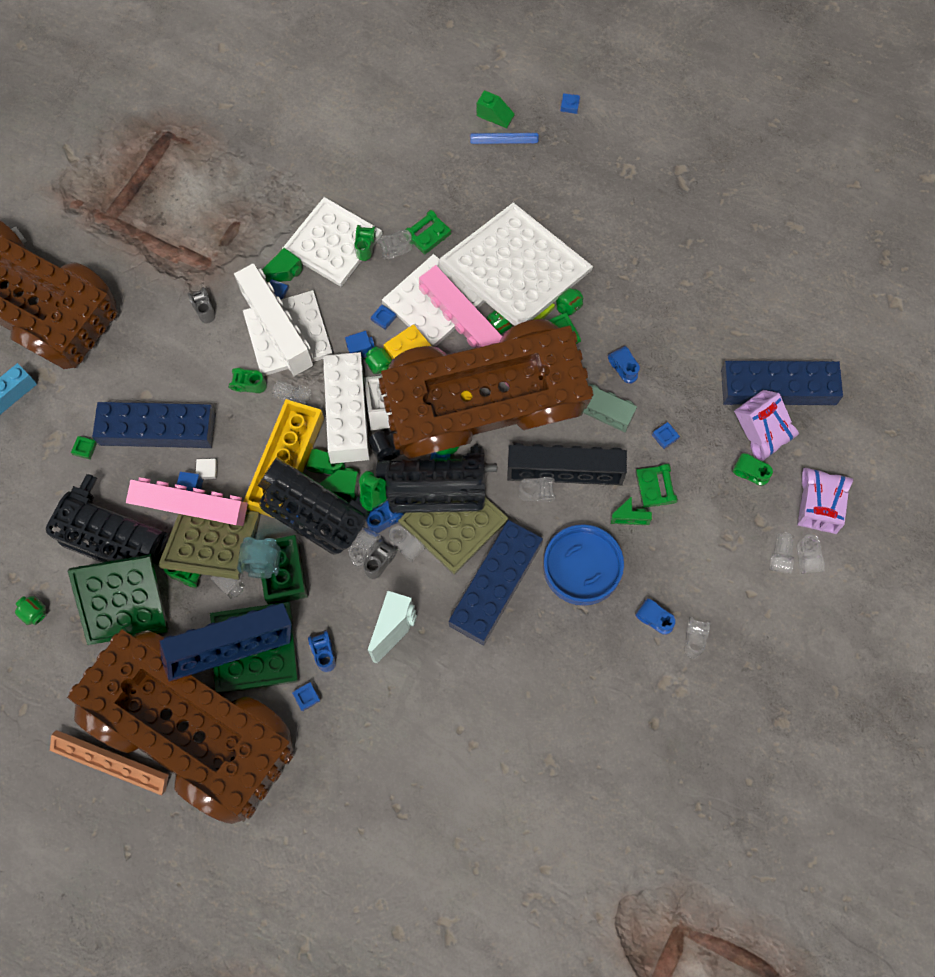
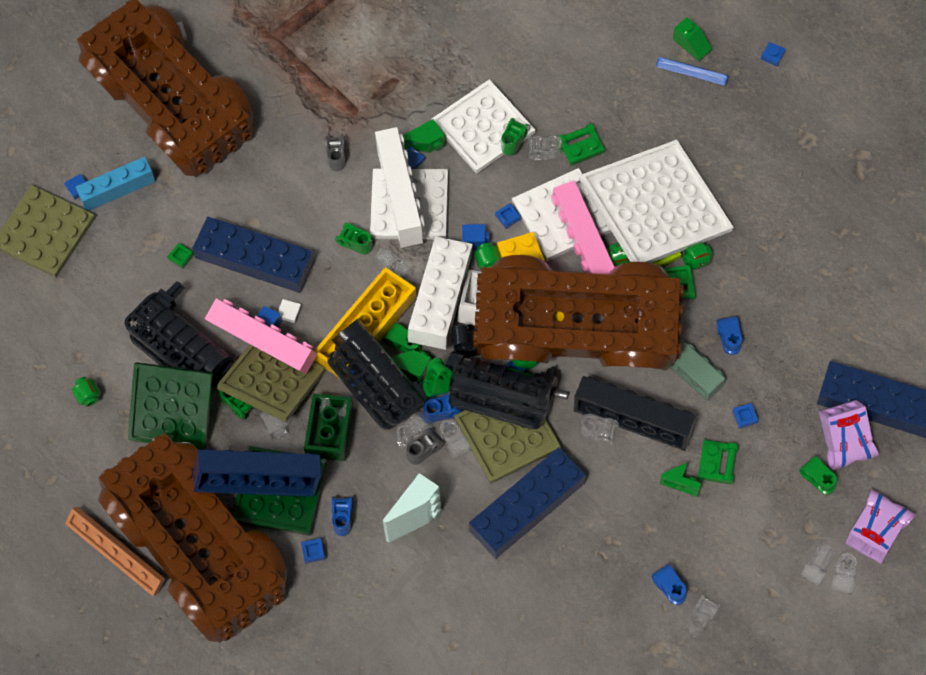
camera: 20 degrees right, 5 degrees down
(259, 557) = (311, 407): clear light blue brick -> none
(583, 565) = (617, 513): blue piece -> none

